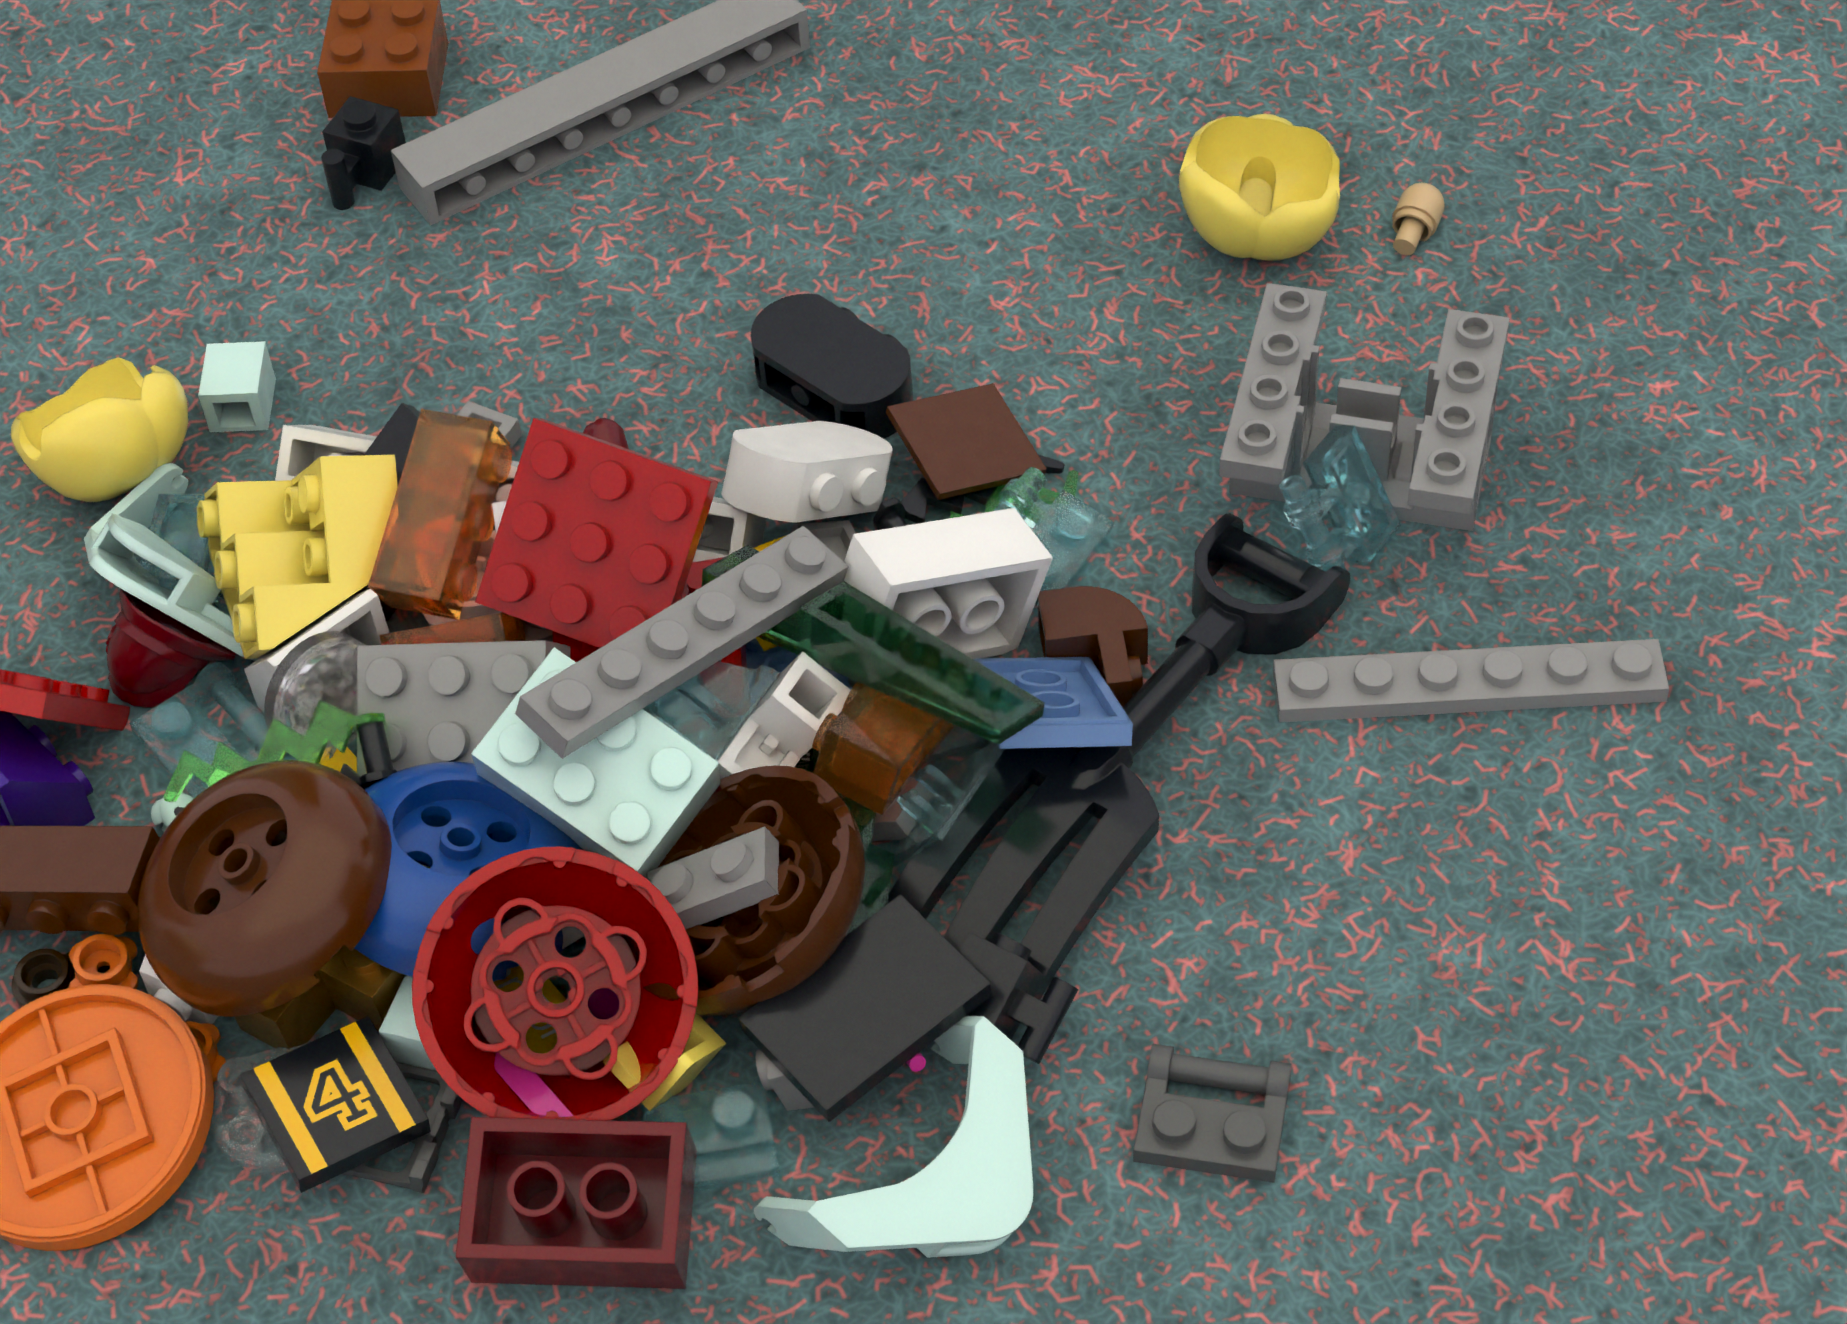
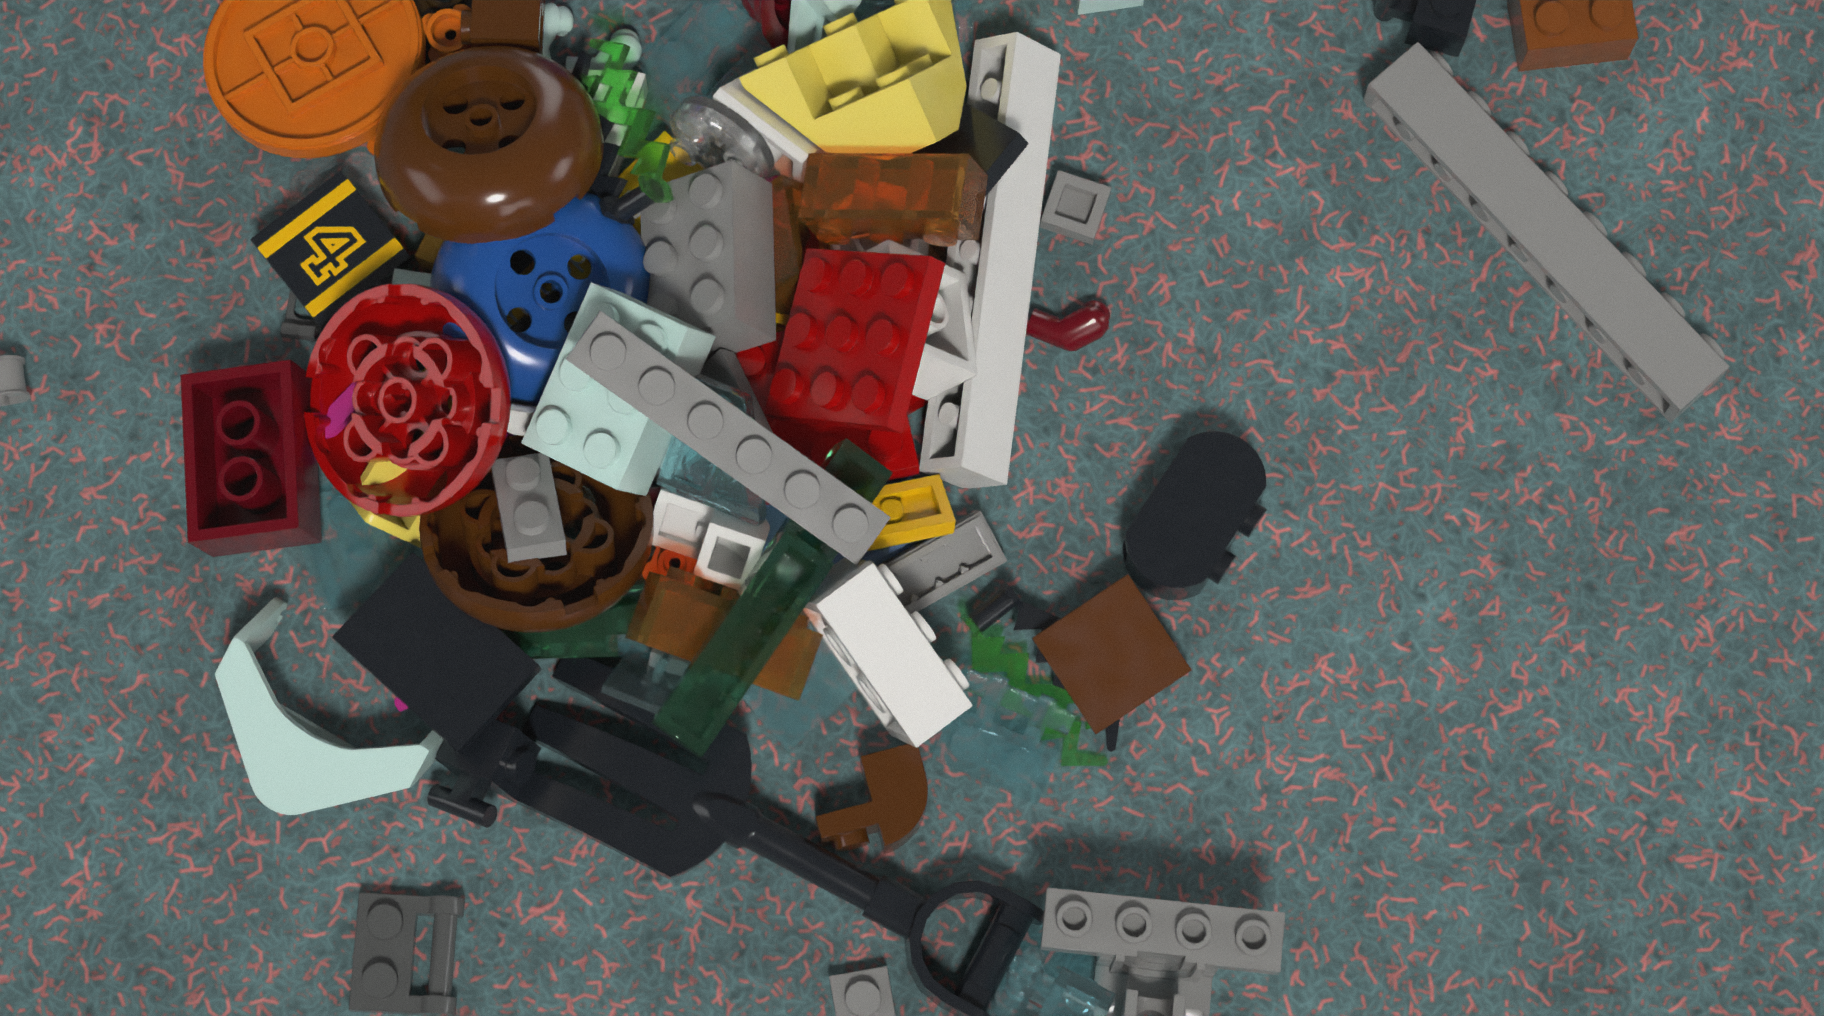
camera: 75 degrees right, 25 degrees up
(806, 471) = (1026, 513): white brick -> none
(1077, 703) = (781, 766): medium blue tile -> none
(1260, 186) = (1478, 869): light yellow piece -> none

